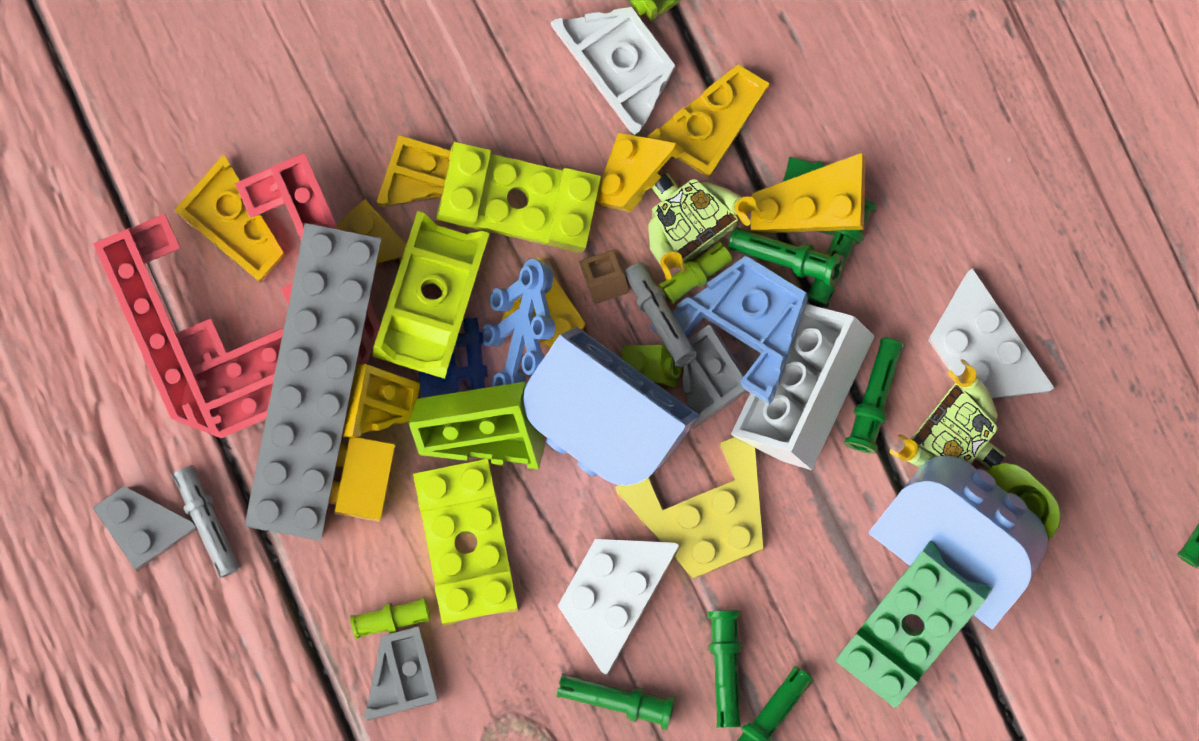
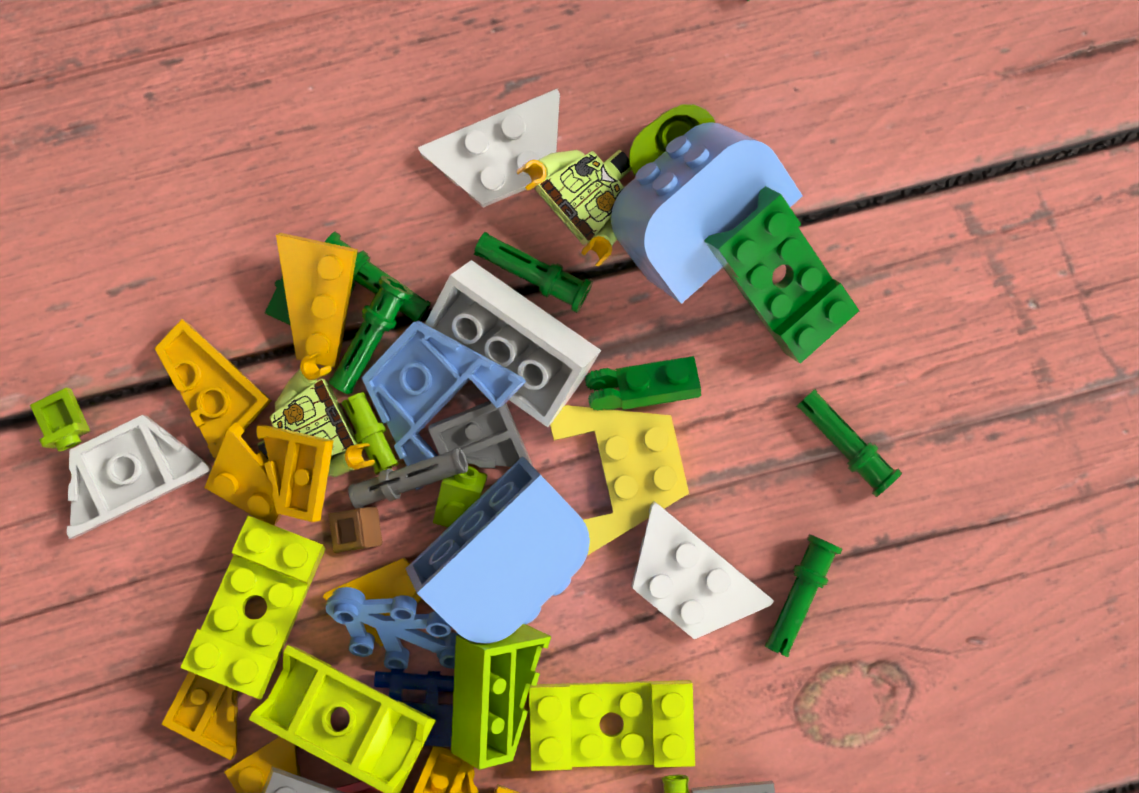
camera: 80 degrees left, 5 degrees up
(648, 211) = (297, 471): none -> yellow wing
(725, 650) = (769, 474): green pin -> none
(787, 518) = (644, 384): none -> green hinge

